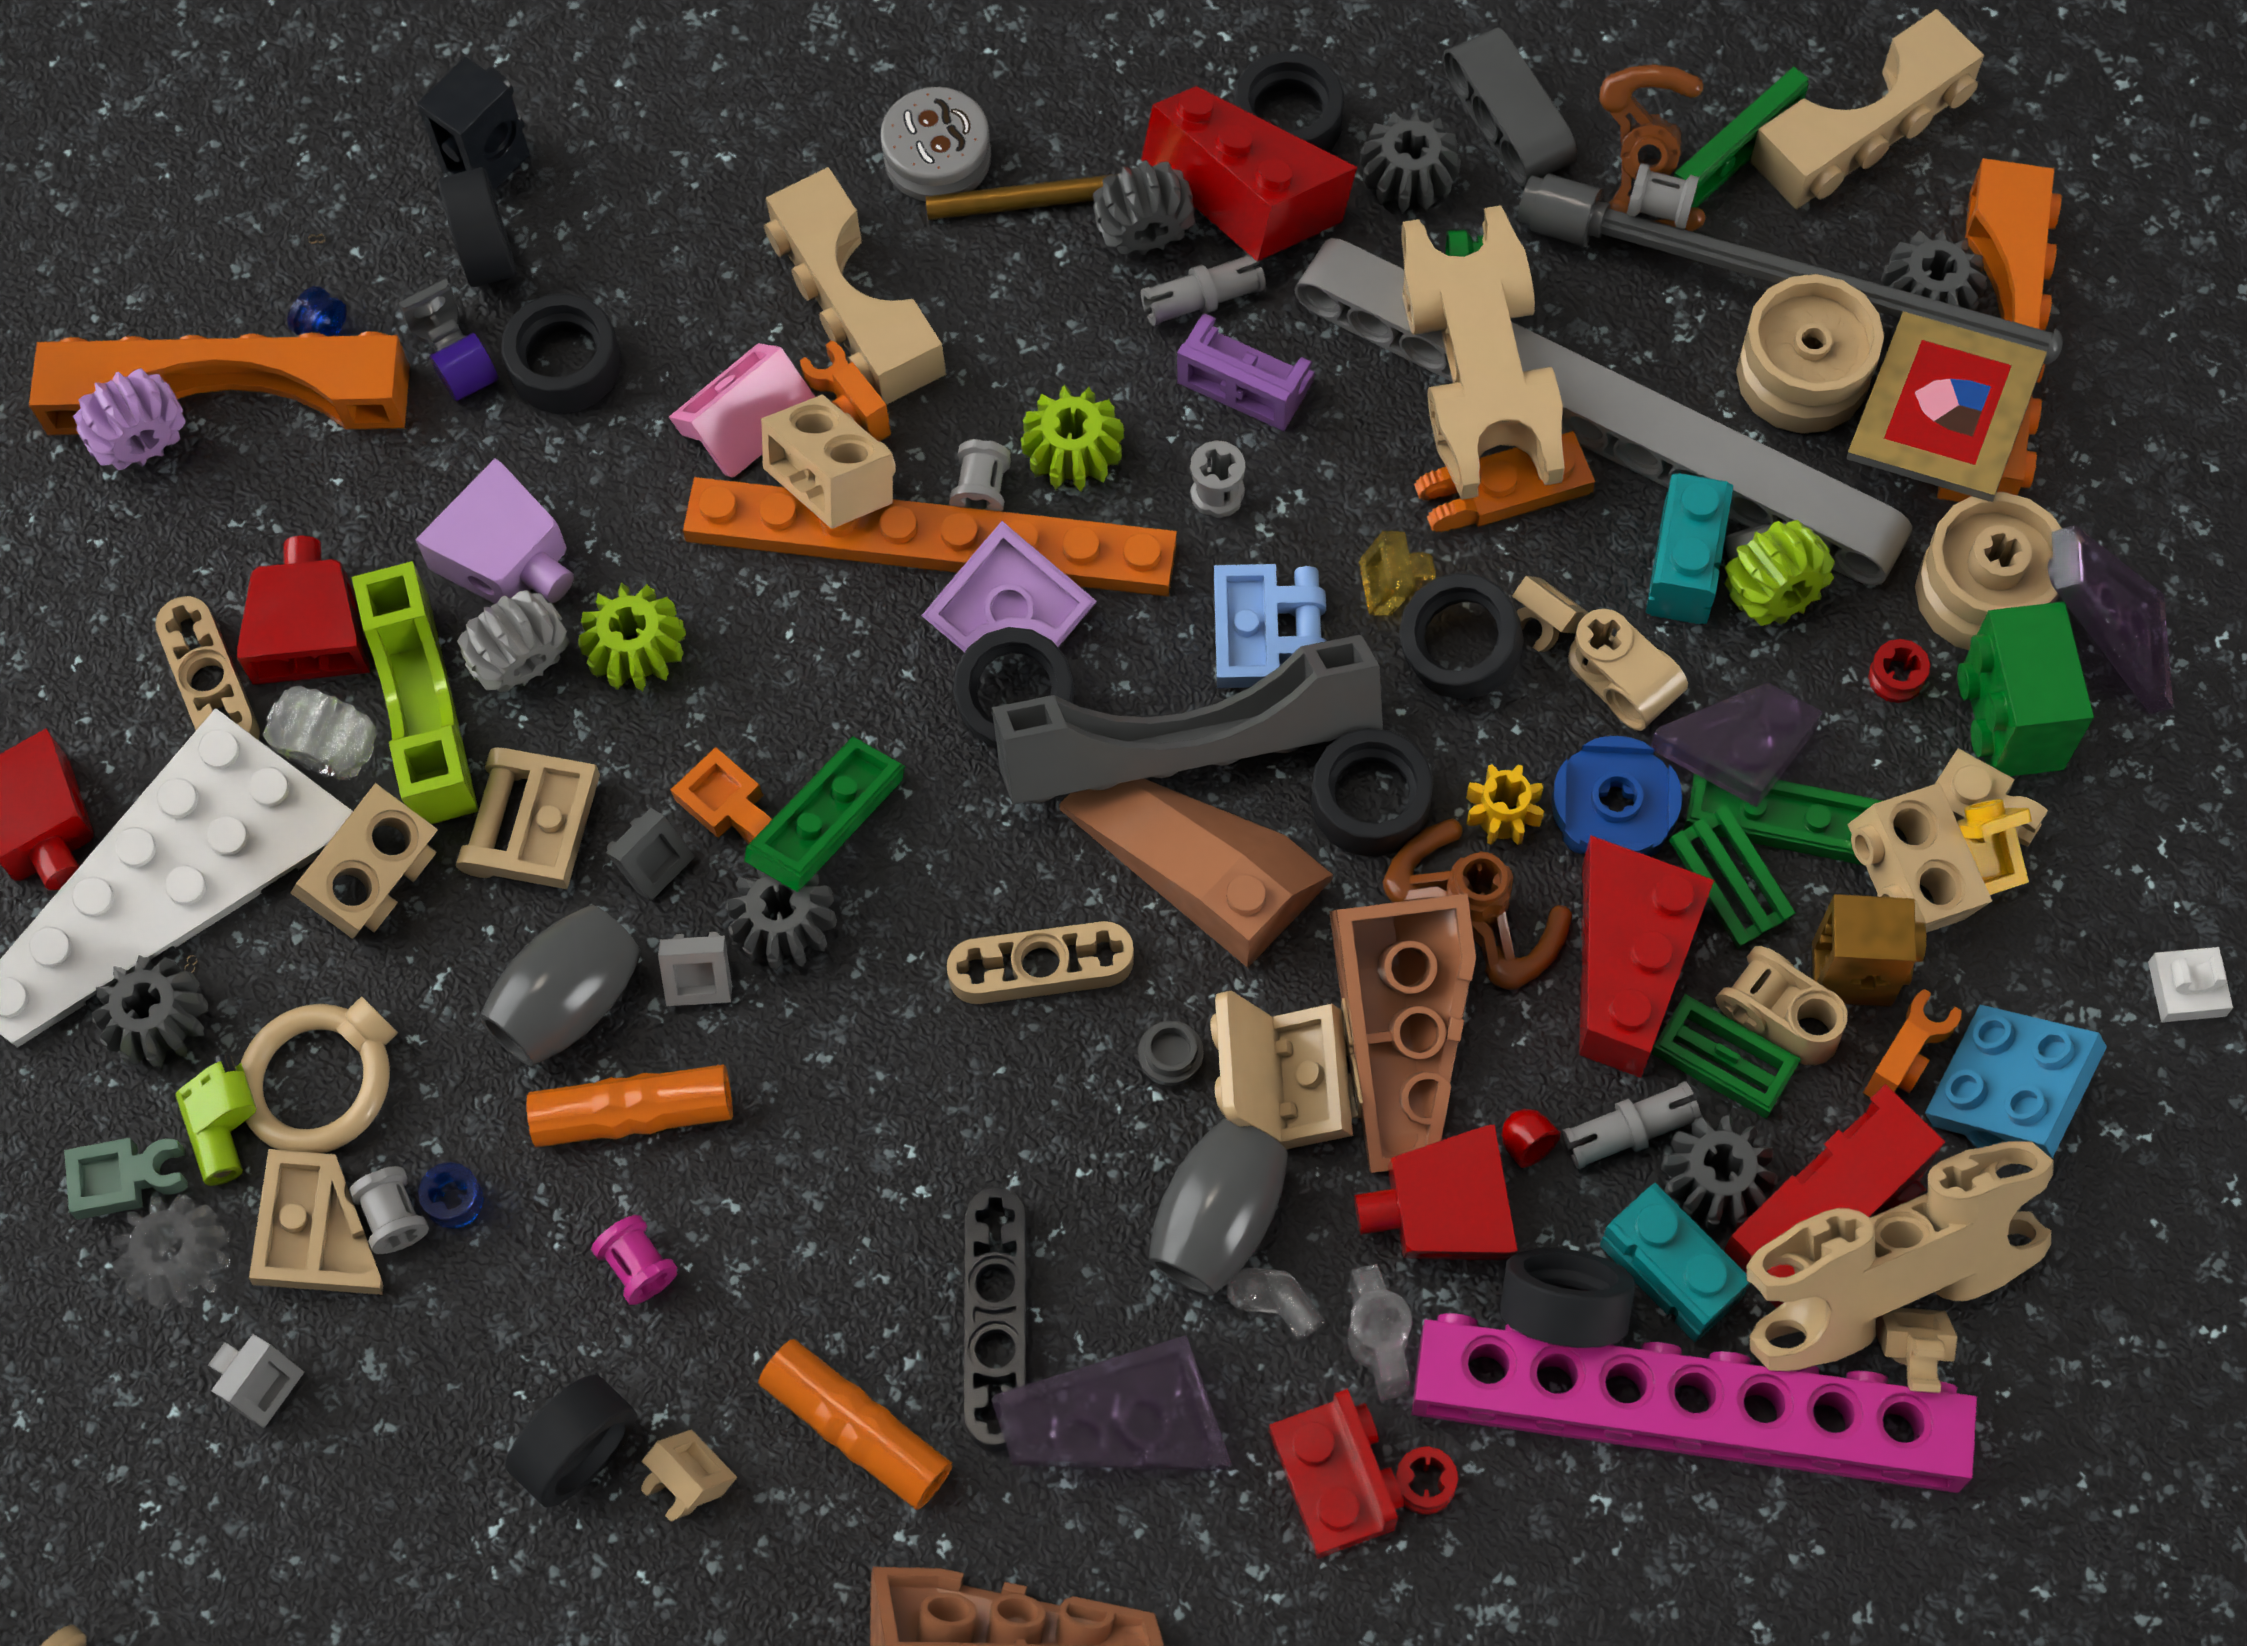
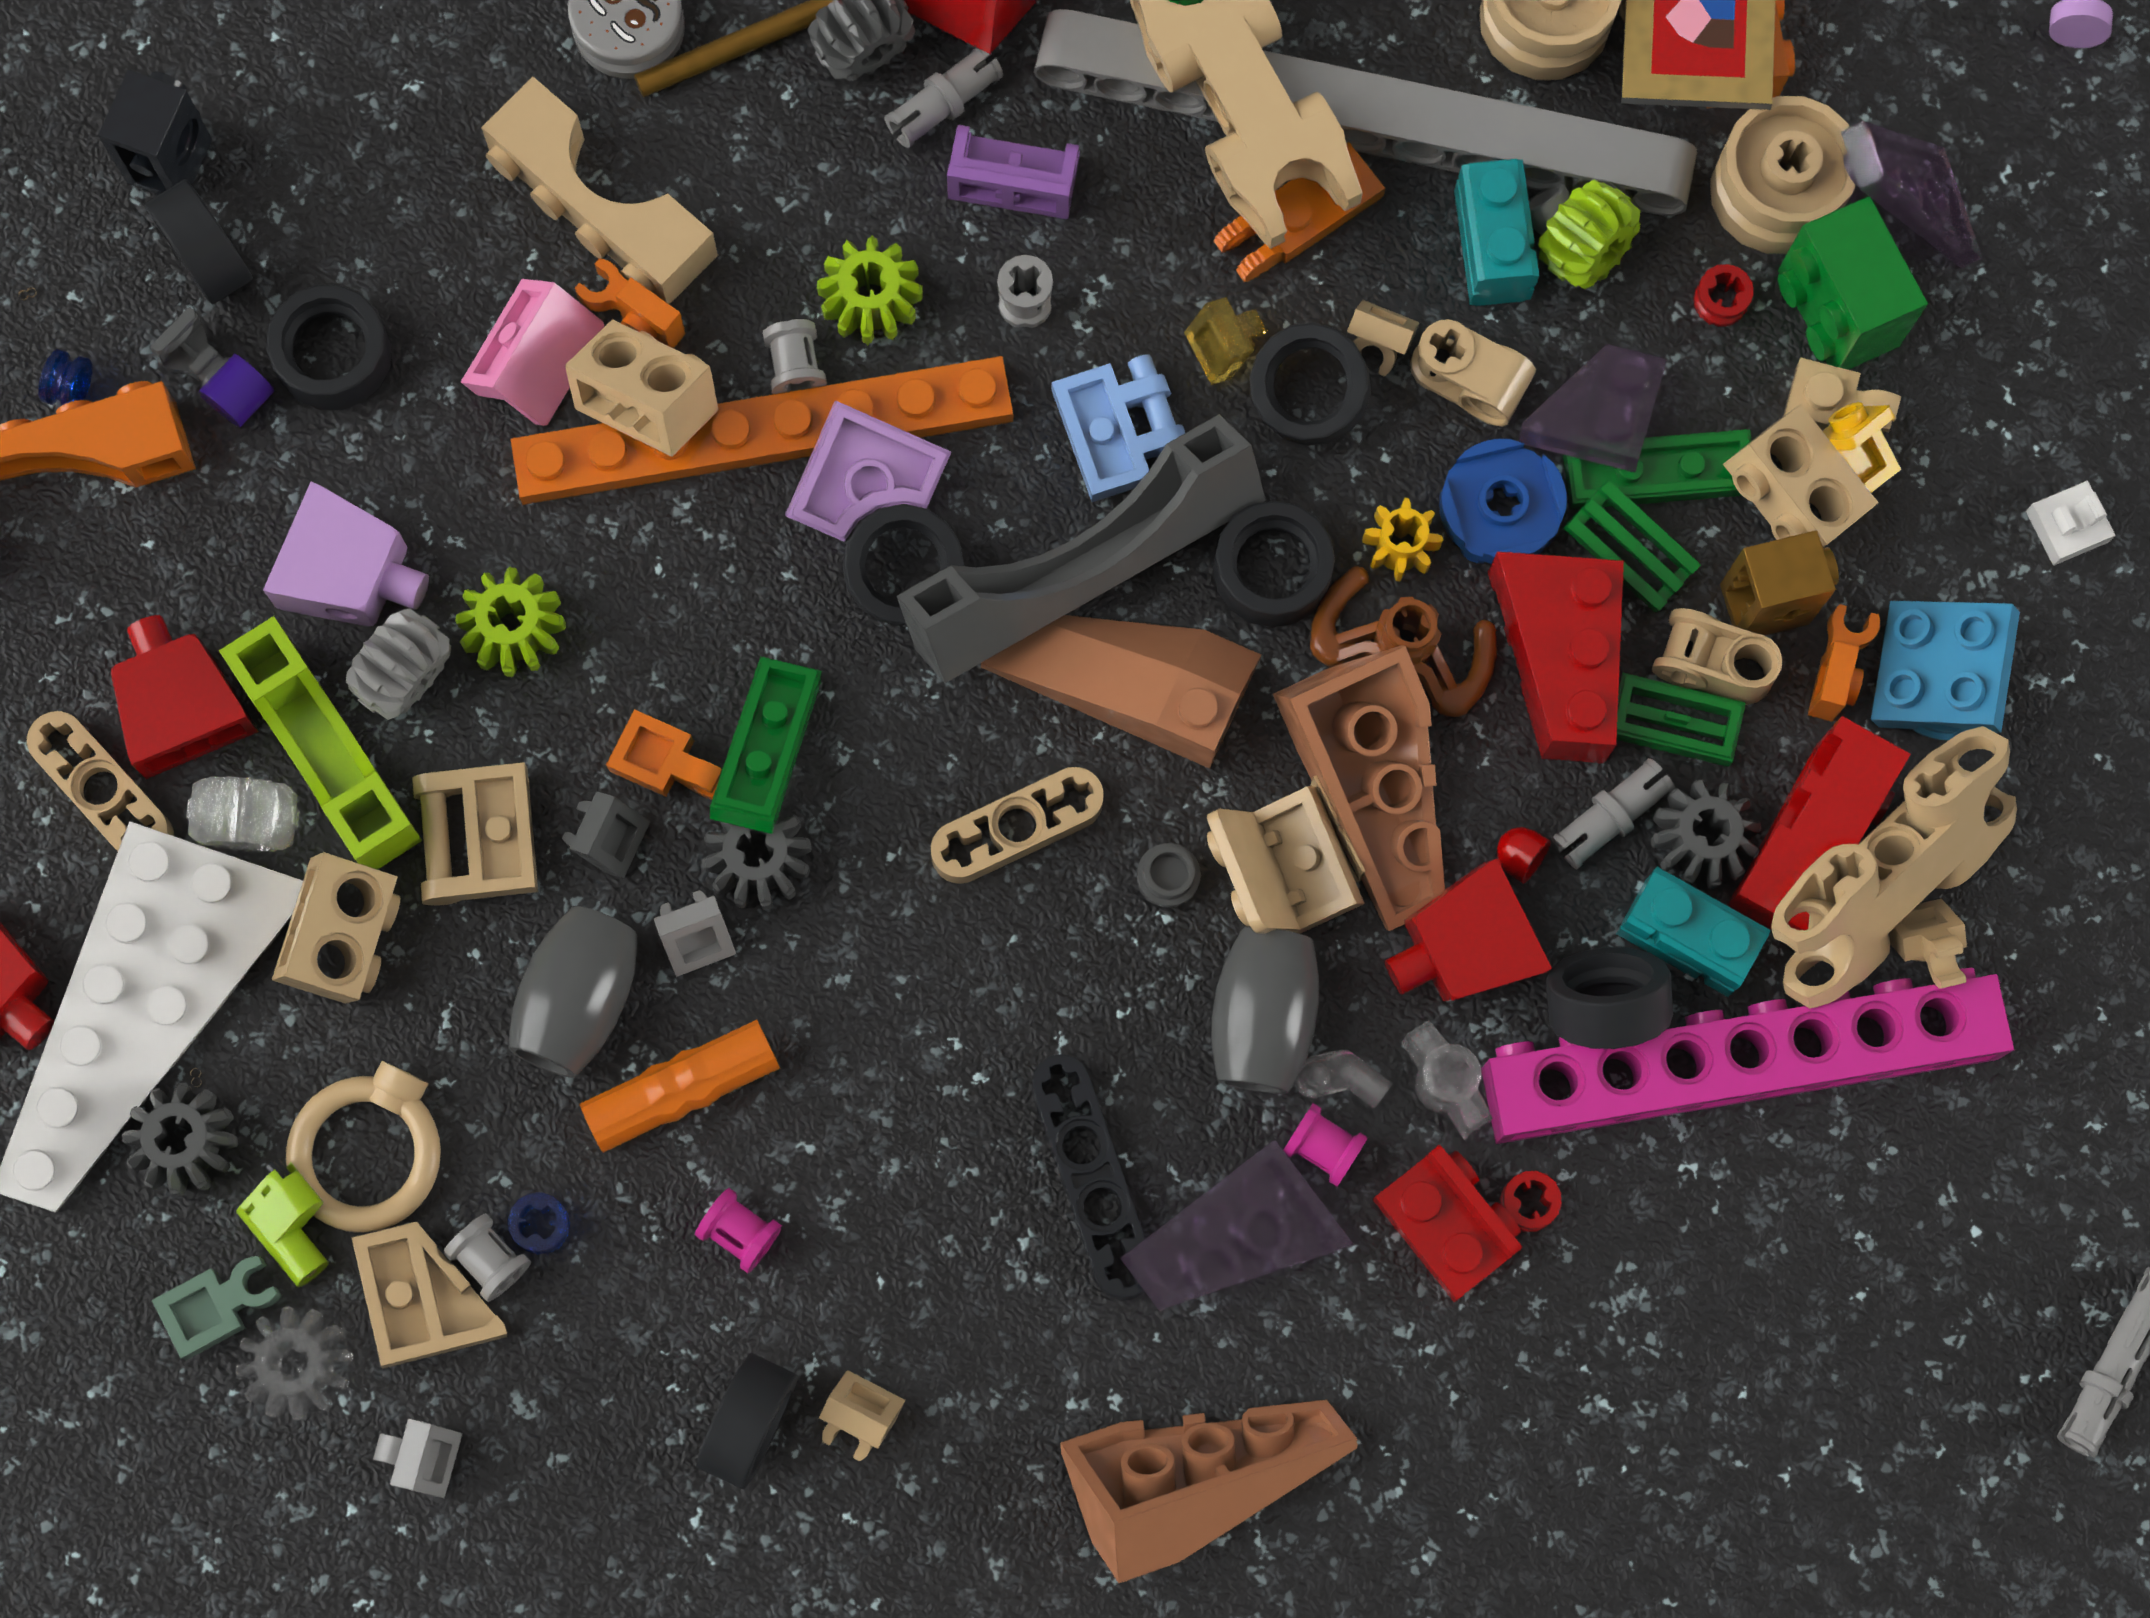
camera: 25 degrees left, 10 degrees up
(855, 1424) = (998, 1317): orange axle -> none
(1235, 1357) = (1325, 1144): none -> dark pink bush

